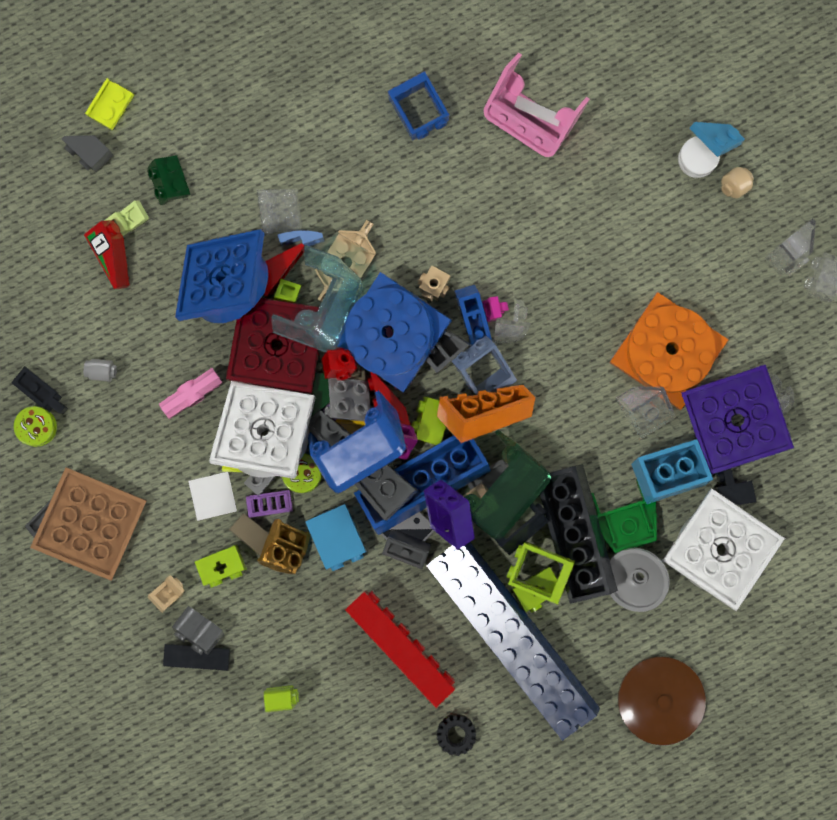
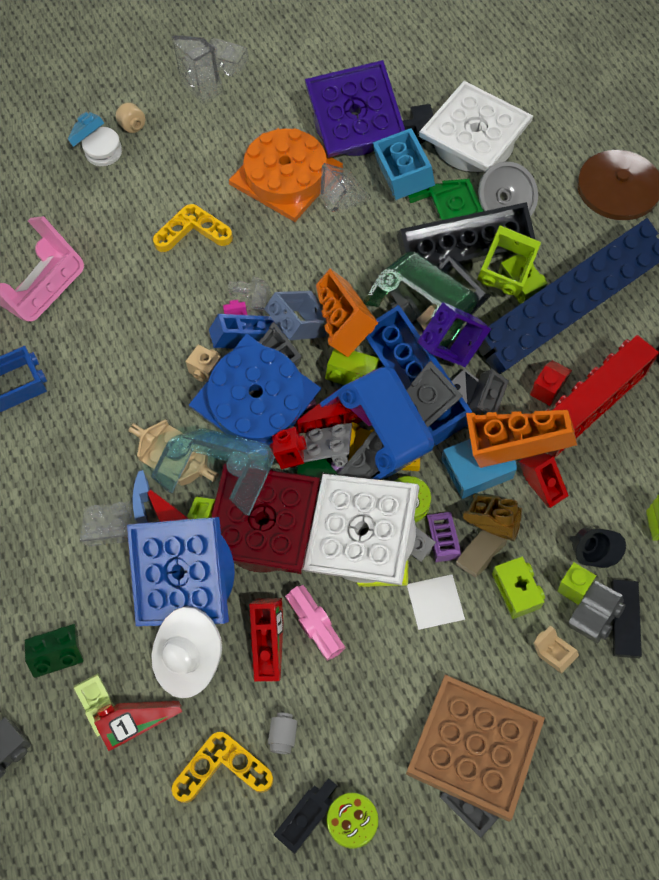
camera: 90 degrees left, 20 degrees down
(82, 326) = (224, 757): none -> yellow beam
(160, 288) = (186, 652): none -> white hat
(179, 353) = (267, 638): none -> red slope
(222, 615) = (576, 583): none -> lime brick
(256, 635) = (598, 547): none -> black piece
(323, 595) = (544, 478): none -> red slope
(345, 565) = (517, 435): none -> orange wedge
(424, 611) = (550, 382): none -> red slope
(603, 255) = (189, 223): none -> yellow beam

